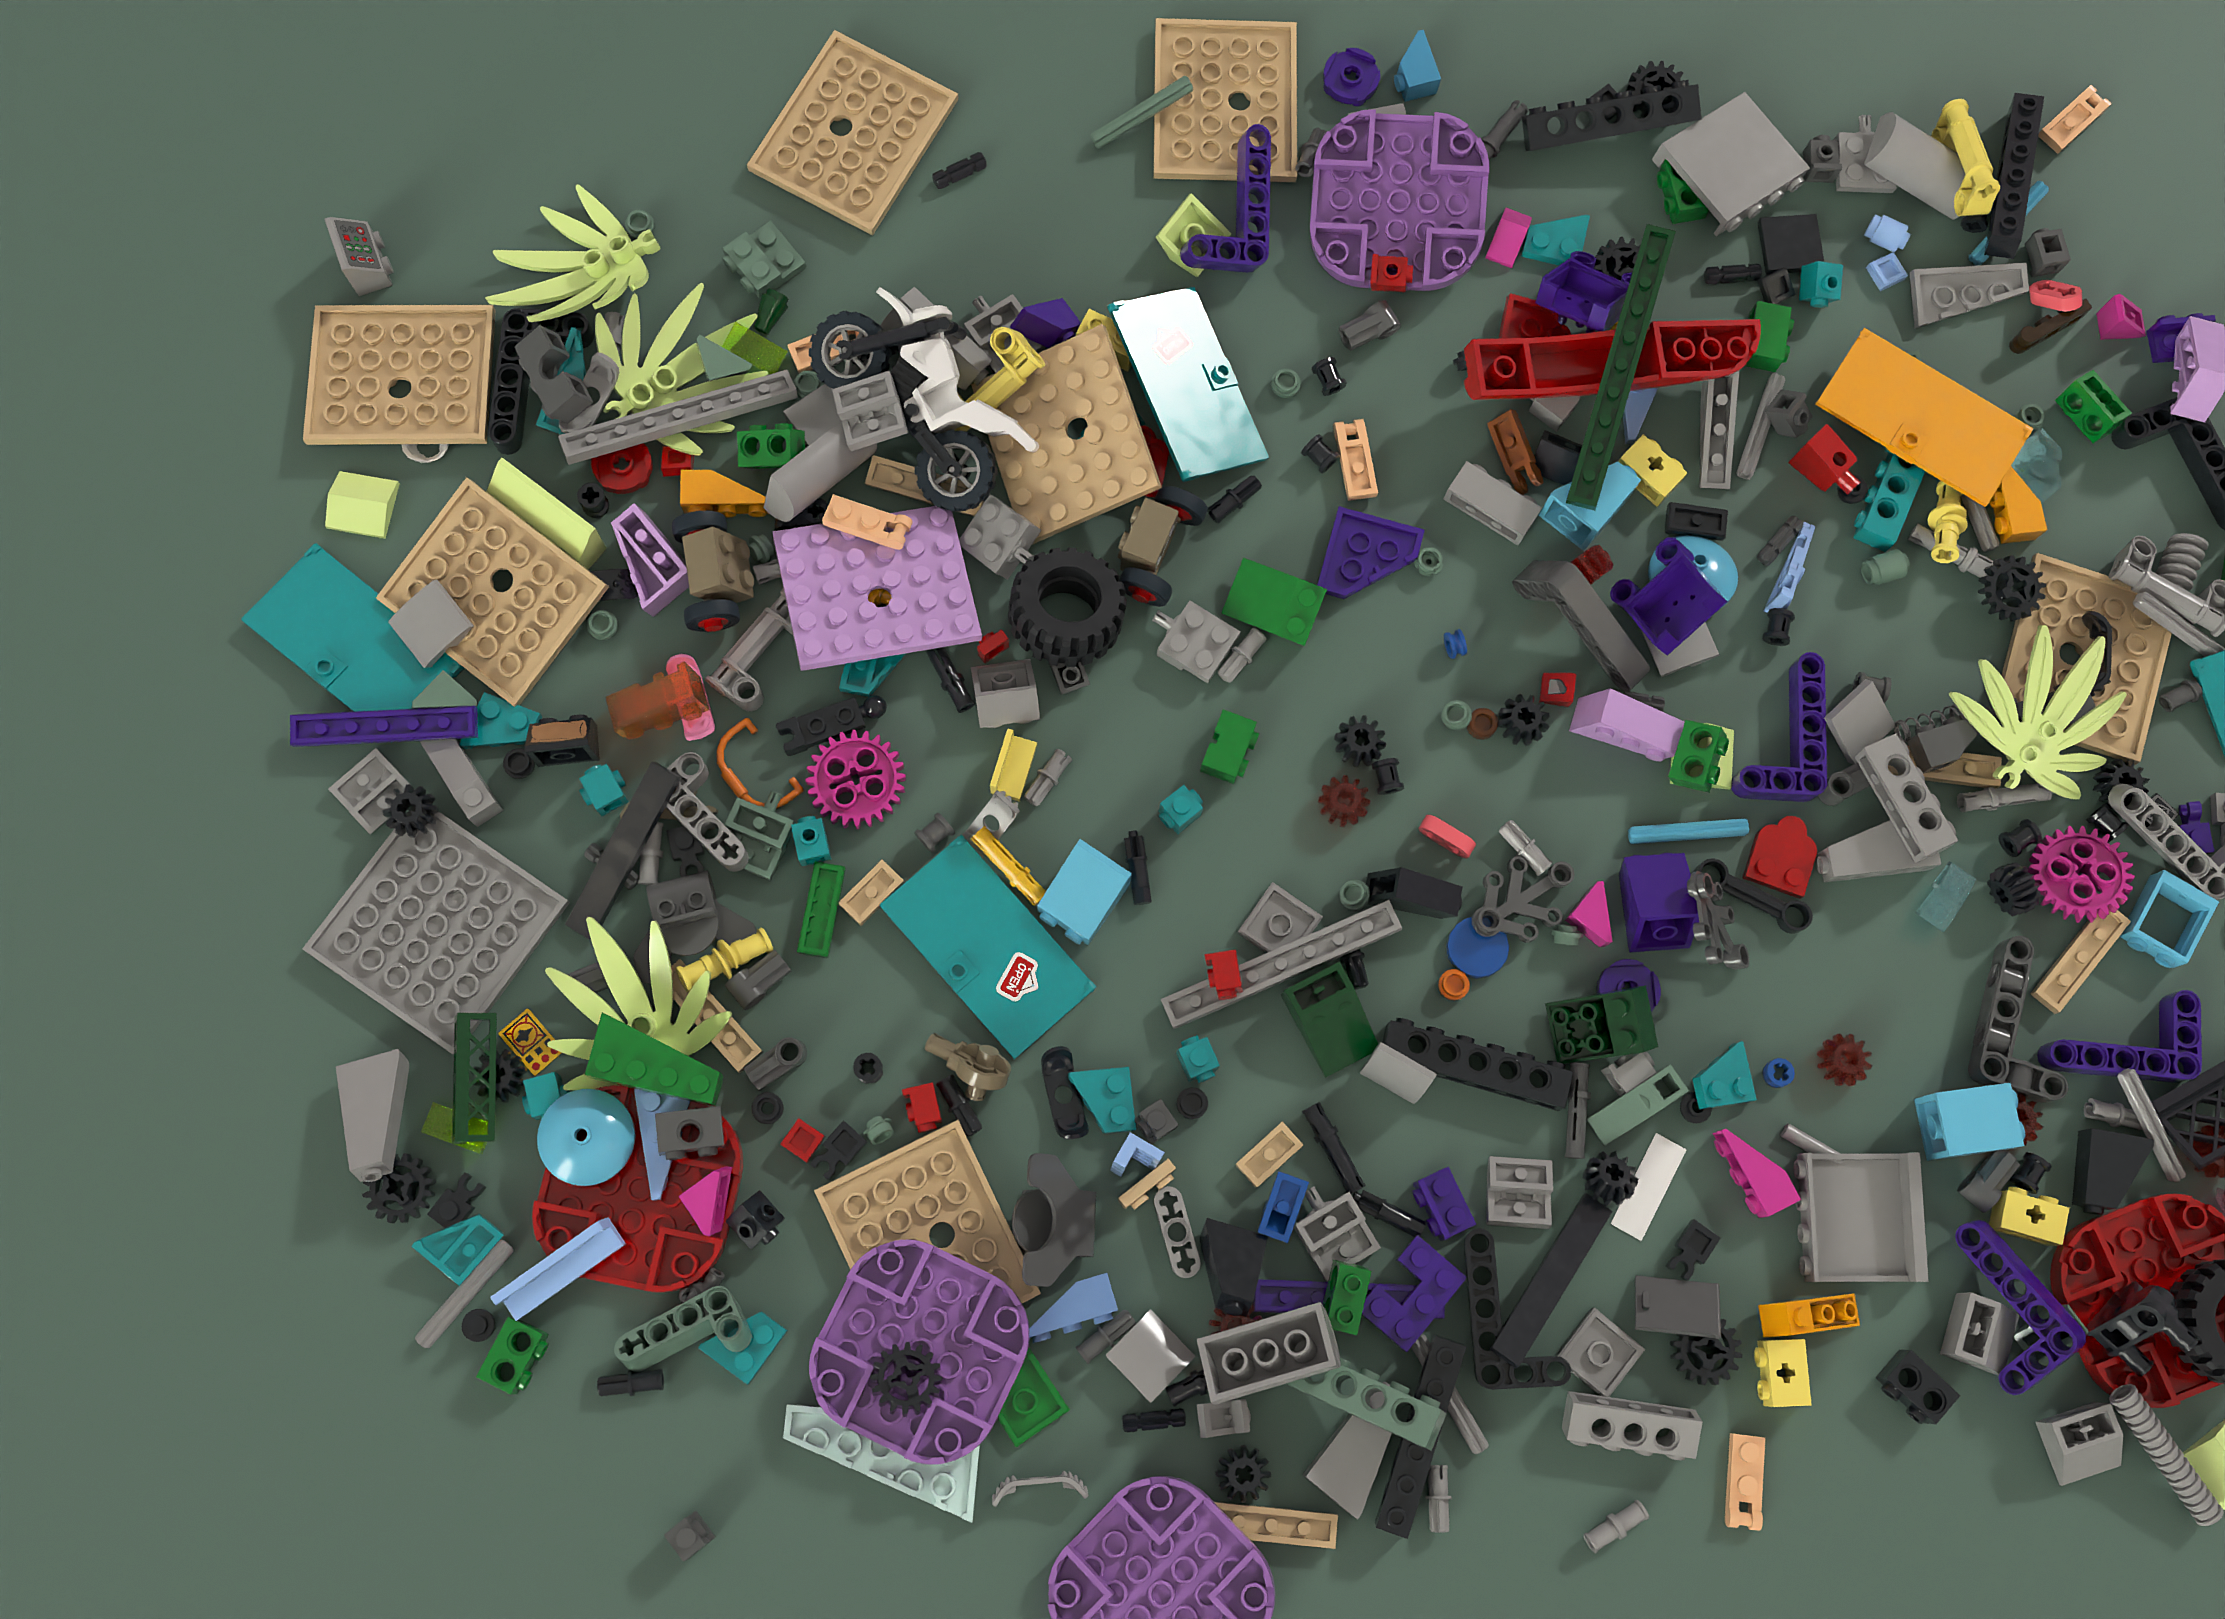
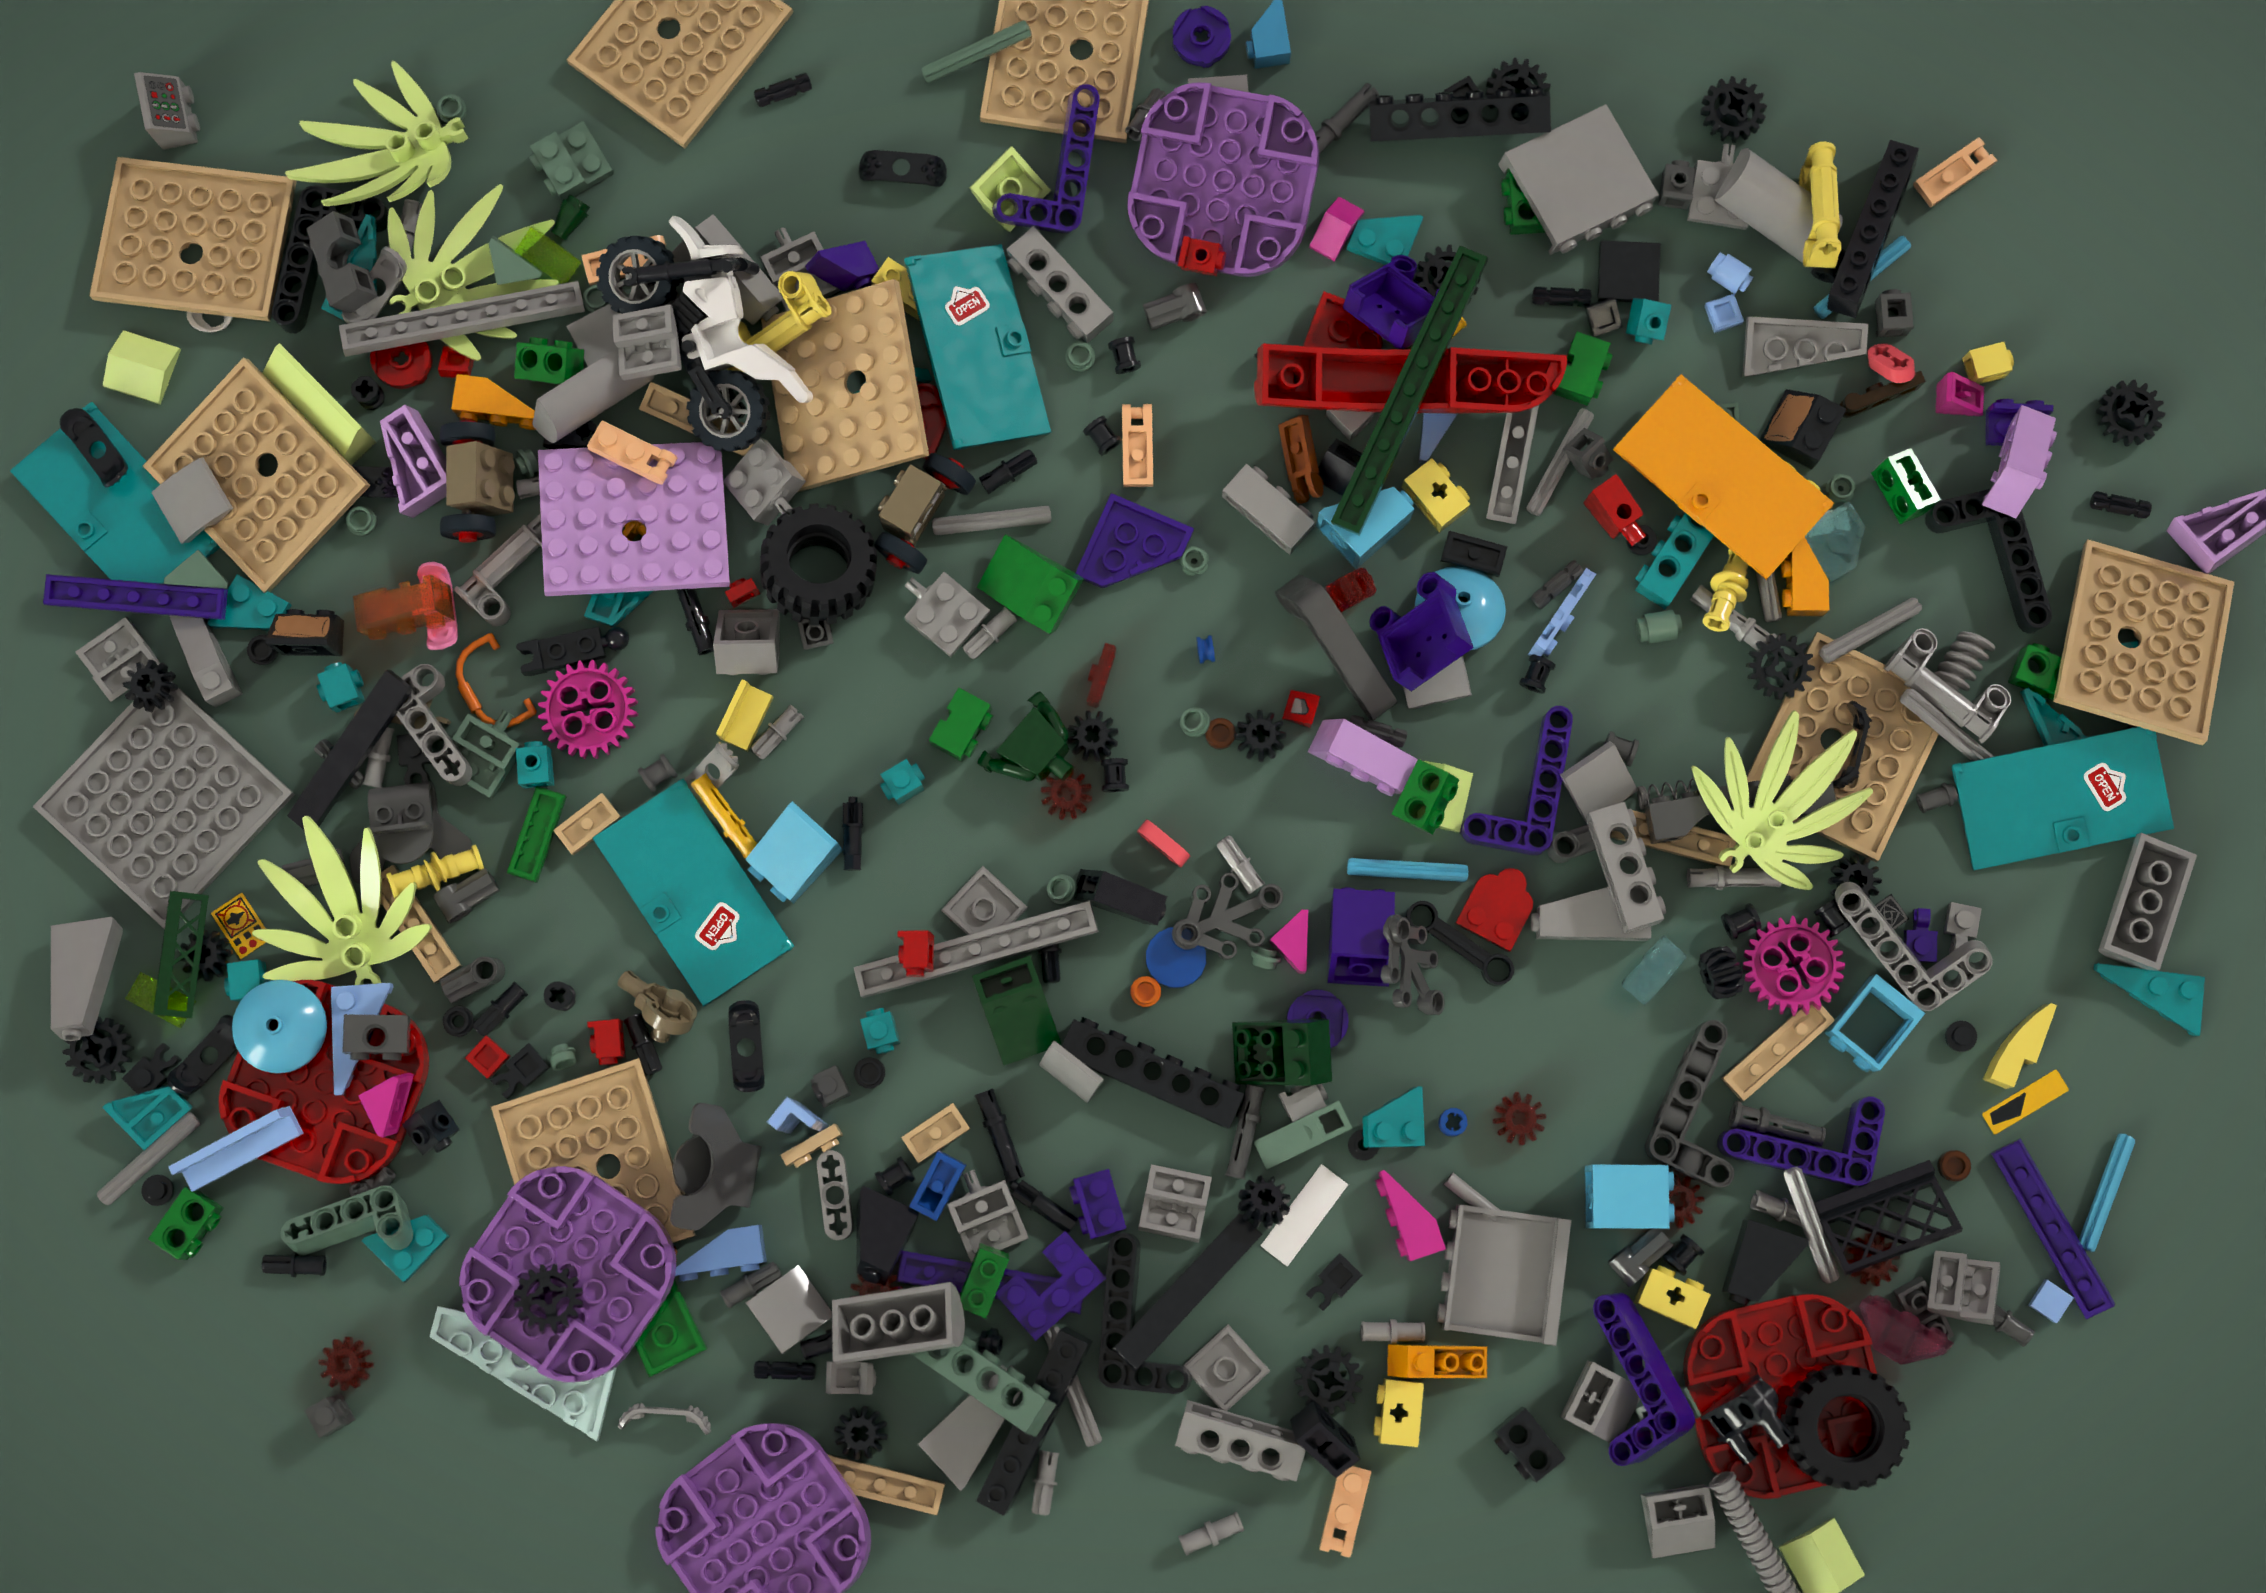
camera: 15 degrees right, 5 degrees up
(313, 572) = (84, 433): none -> black piece
(500, 1197) = (193, 1071): none -> black piece
(643, 1063) = (341, 963): green wedge -> none
(688, 1482) = (335, 1365): none -> clear red gear
(808, 1090) = (499, 1009): none -> black axle
(1064, 227) = (924, 168): none -> black piece
(1108, 1097) = (787, 1055): teal wing -> none
(1225, 547) = (991, 520): none -> light grey axle
(1229, 286) = (1035, 247): none -> light grey brick
(1235, 1204) = (895, 1176): none -> black bush
(1306, 758) = (1033, 747): none -> dark green torso
(1357, 681) = (1099, 675): none -> clear red plate
(1359, 1359) = (990, 1341): none -> black plate
(1677, 1306) = (1307, 1335): dark grey container -> none
(1717, 1411) = (1325, 1439): none -> black brick
(1760, 1291) = (1392, 1331): none -> light grey pin
(1863, 87) = (1728, 121): none -> black gear
(1986, 363) = (1802, 426): none -> black slope
(2081, 1030) = (1762, 1117): none -> dark grey pin
(2087, 545) = (1870, 630): none -> light grey axle
(2144, 285) = (1988, 363): none -> light yellow brick

